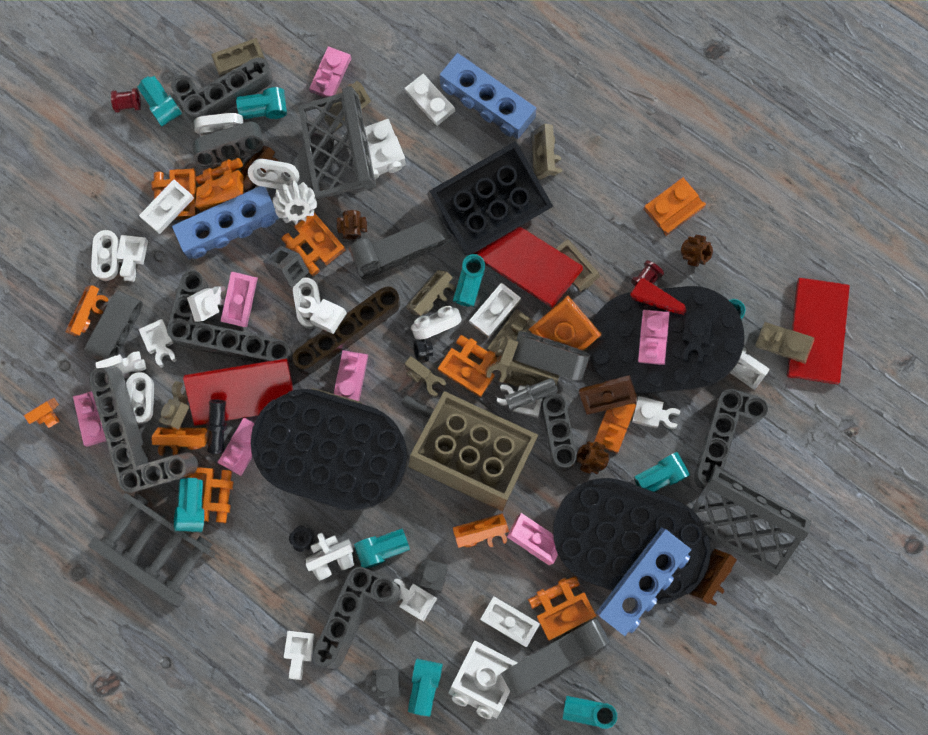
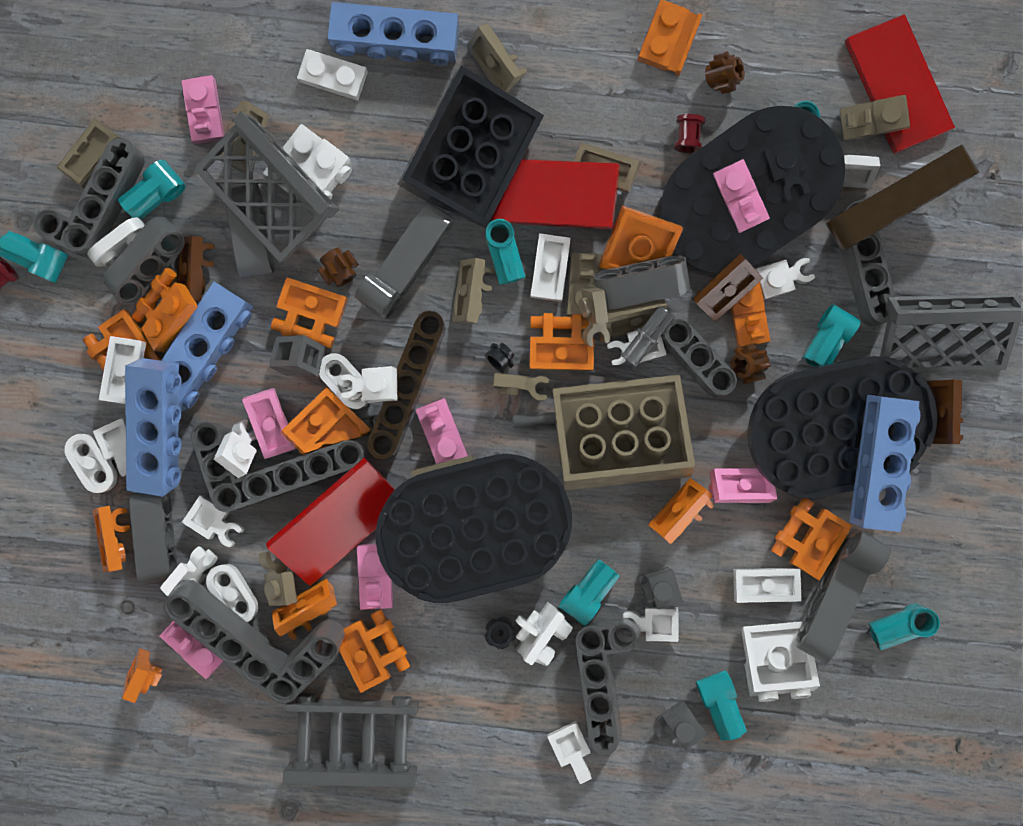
camera: 35 degrees left, 10 degrees up
(149, 258) = (142, 439): none -> medium blue brick
(189, 512) = (368, 685): teal piece -> none
(216, 426) = (335, 574): black pin -> none
(274, 173) = (219, 264): white plate -> none
(274, 321) = (324, 424): none -> orange wing
(294, 202) = (261, 281): white gear -> none
(436, 323) = (497, 320): white plate -> none
(654, 296) = (713, 151): red slope -> none
(766, 404) = (902, 198): none -> dark brown beam

